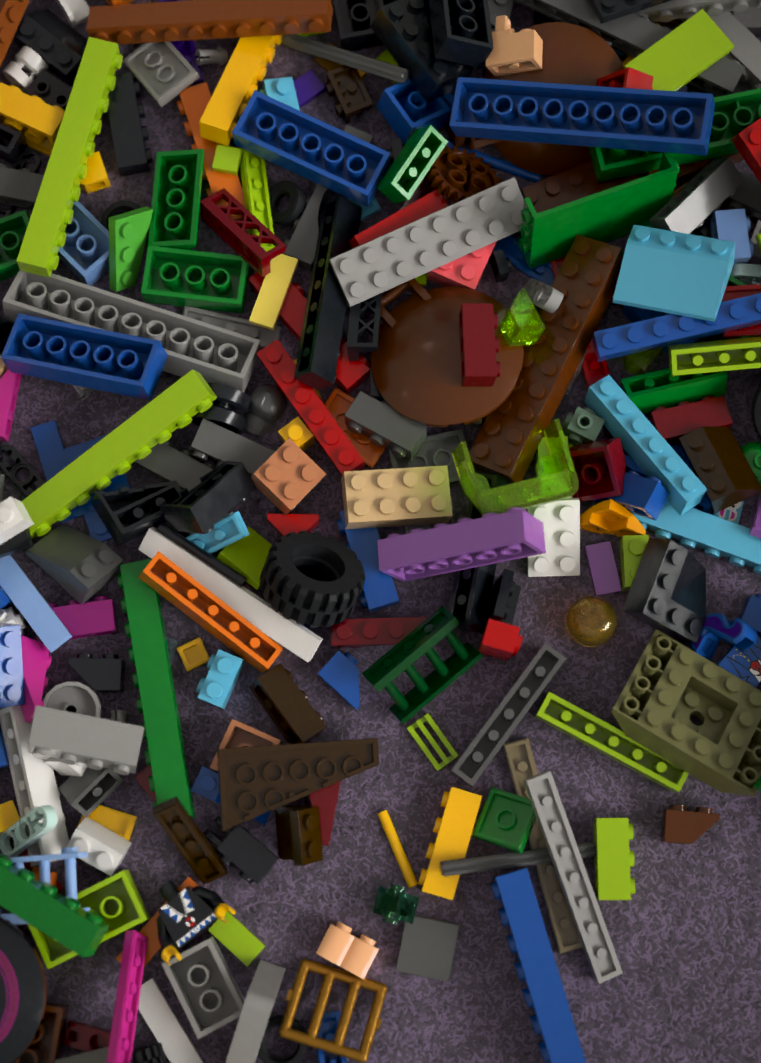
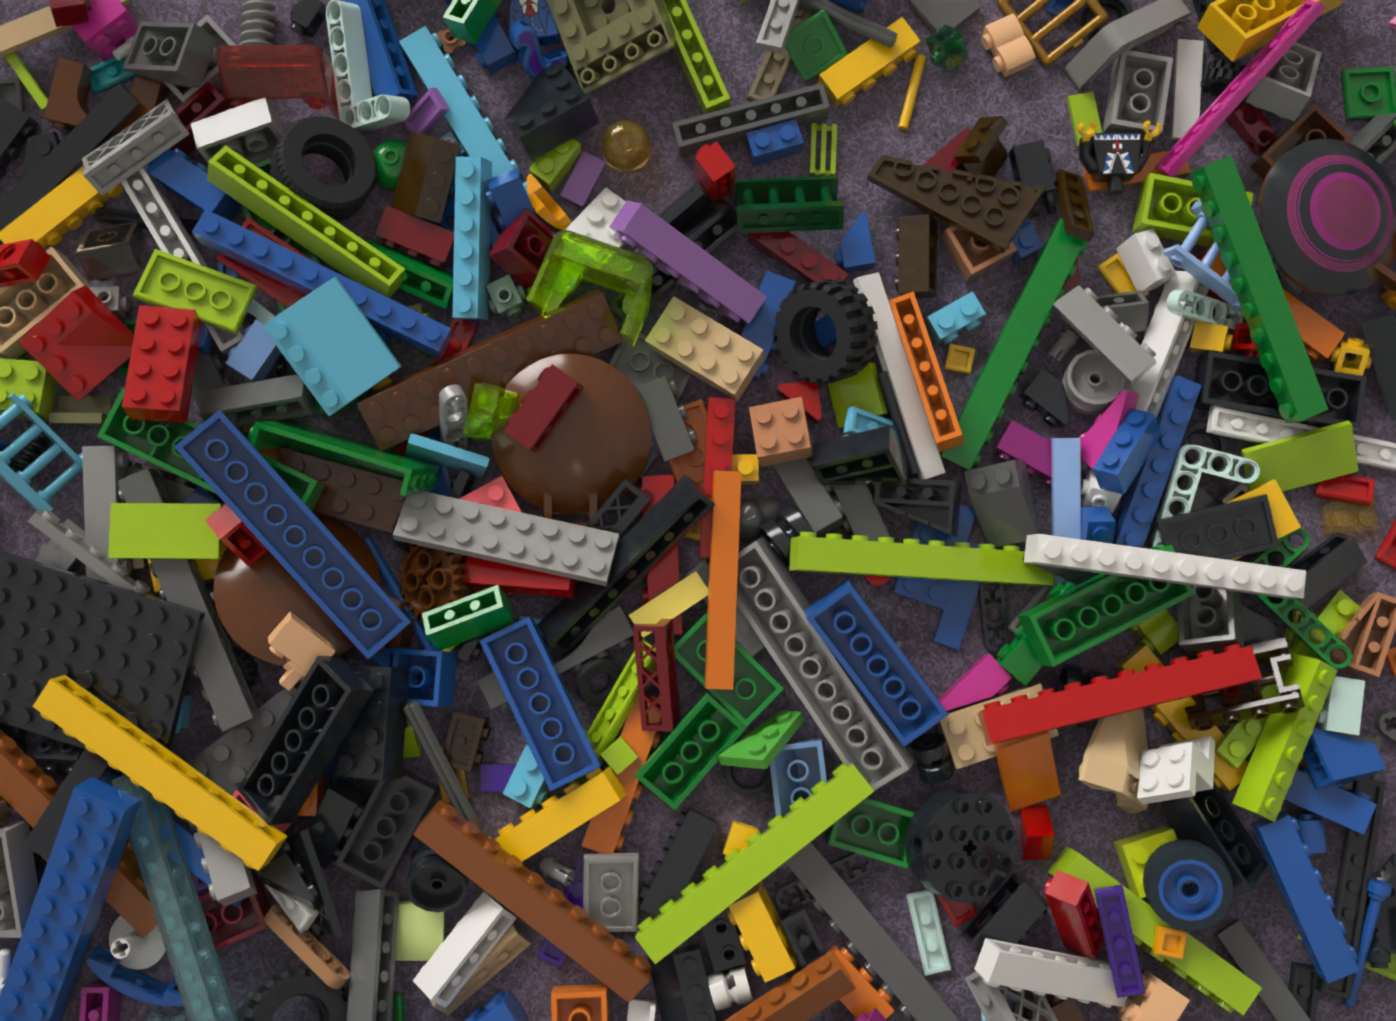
camera: 145 degrees left, 5 degrees up
(246, 333) = (723, 580): none -> orange tile
(475, 712) = (774, 142): none -> blue brick
(527, 271) = (446, 455): none -> medium azure tile

